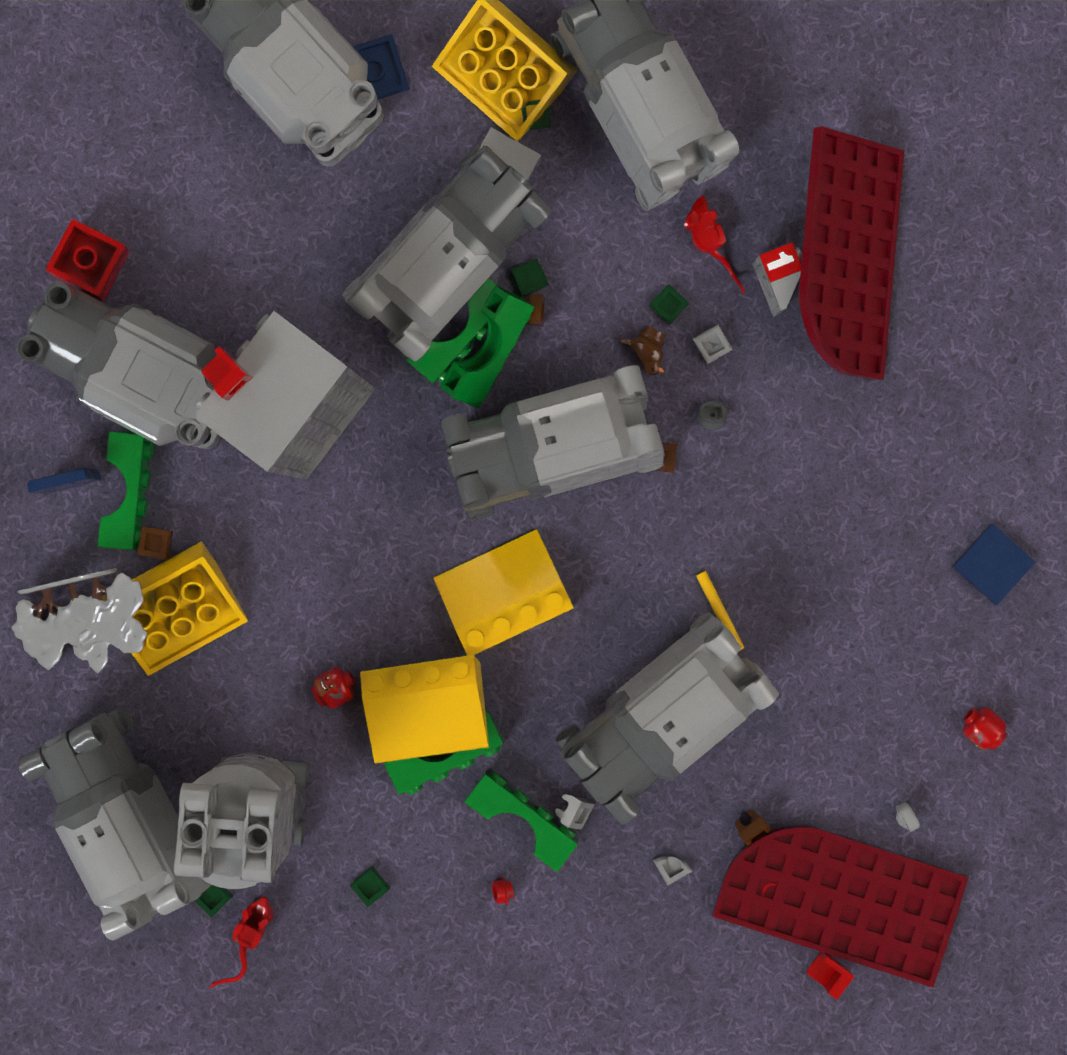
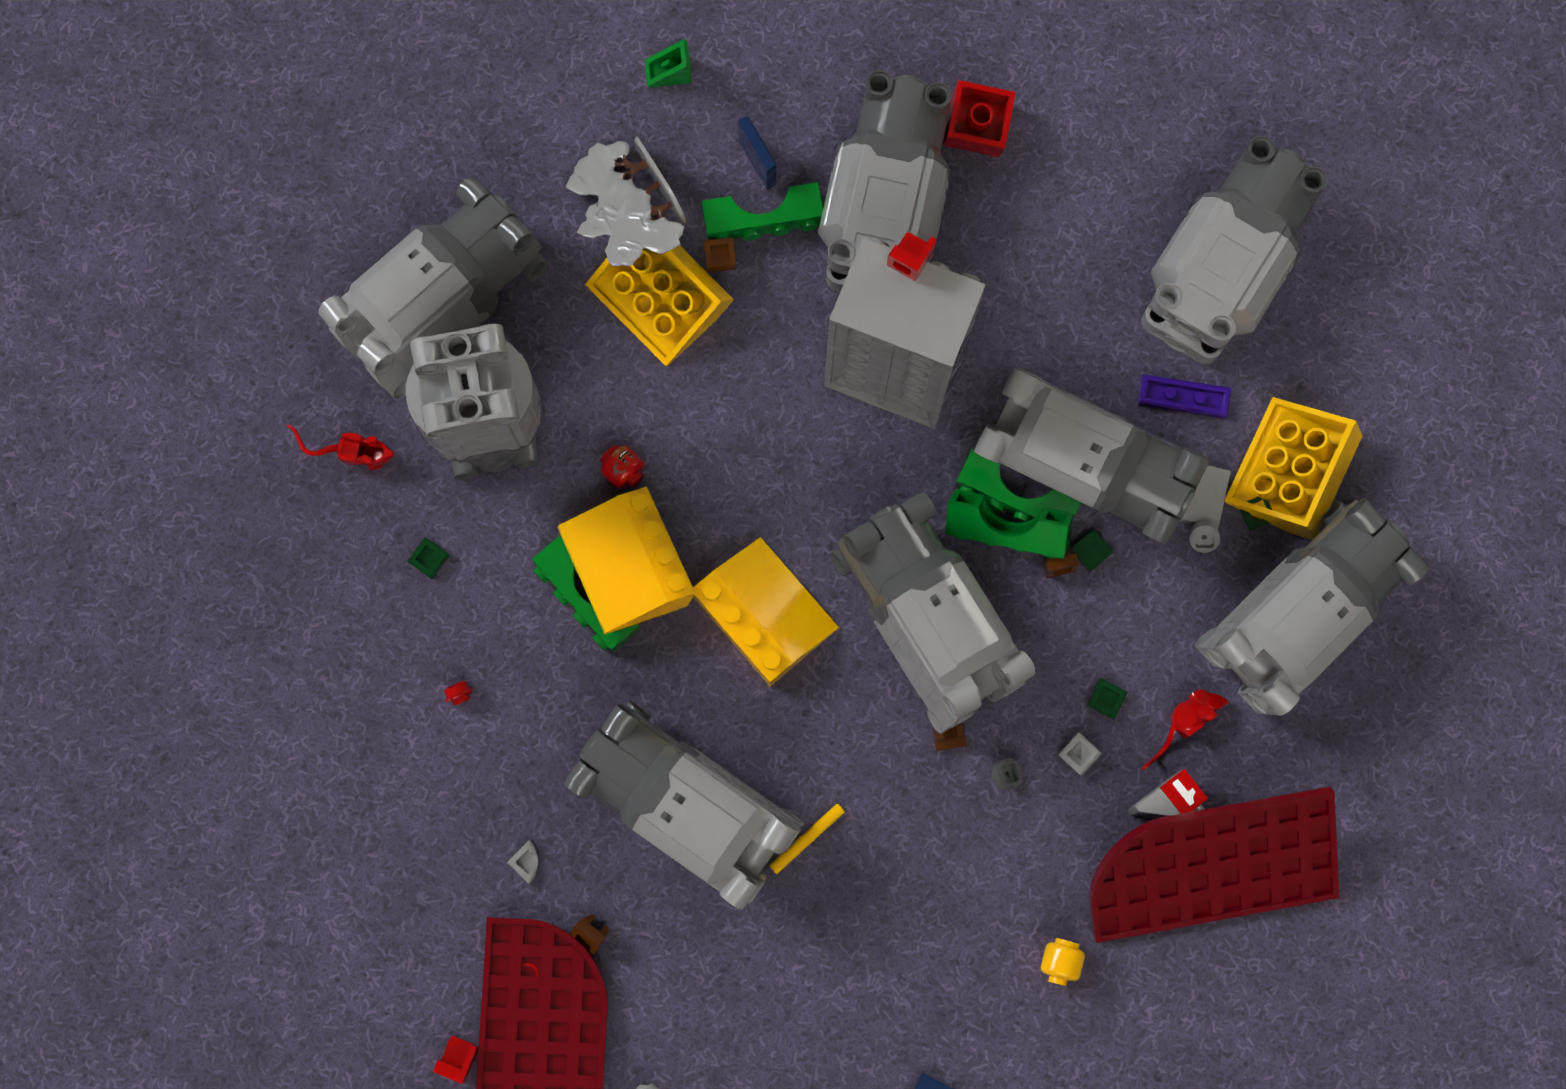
camera: 75 degrees right, 10 degrees down
(213, 899) = (378, 405): dark green tile -> none
(384, 66) = (1256, 351): dark blue tile -> none
(408, 148) = (1184, 396): none -> dark purple tile
(493, 797) = (523, 728): green arch -> none
(546, 170) = (1204, 537): none -> light grey tile
(576, 812) = (559, 745): light grey tile -> none
(648, 349) = (1055, 689): reddish brown animal -> none
(893, 414) = (1062, 961): none -> yellow head

